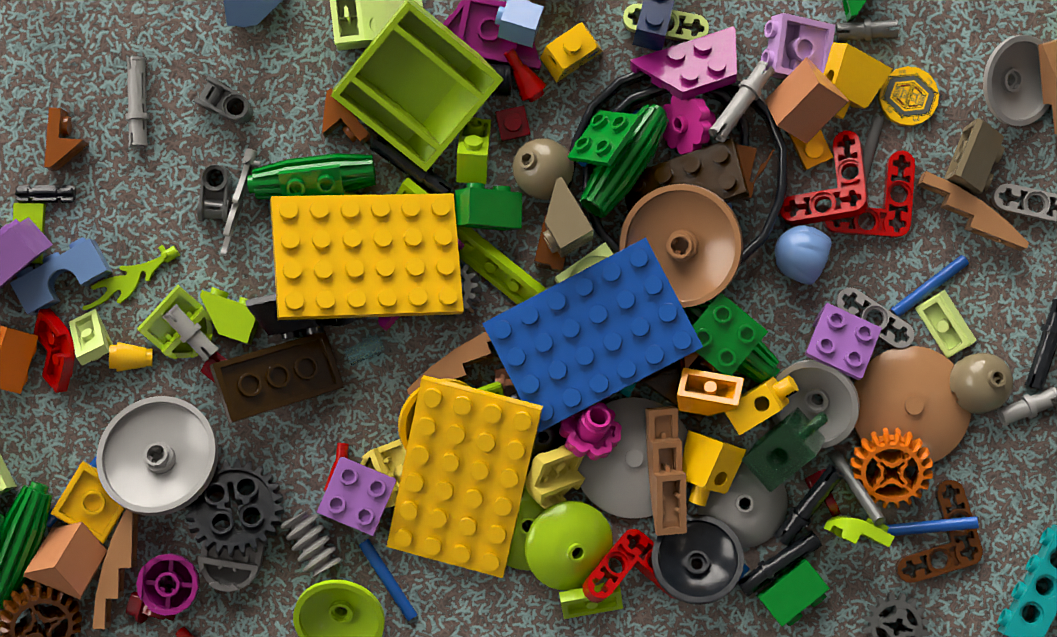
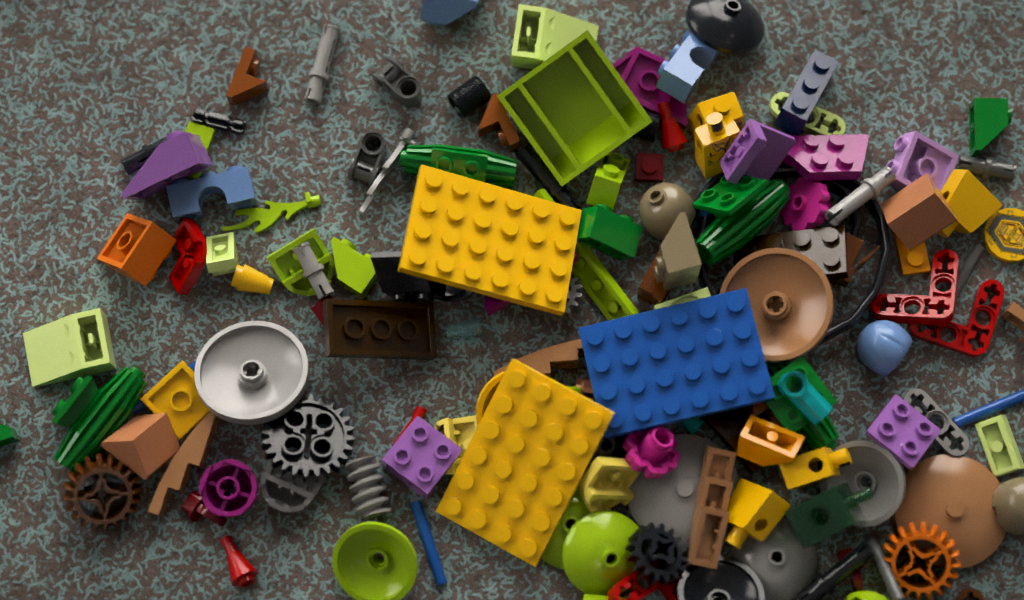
camera: 10 degrees right, 10 degrees down
(303, 97) = (469, 96): none -> black piece
(581, 84) = (713, 142): none -> yellow torso
(620, 85) = (756, 152): none -> medium lavender bracket
(637, 539) = (661, 567): none -> black gear
(735, 340) = (806, 398): none -> teal piece

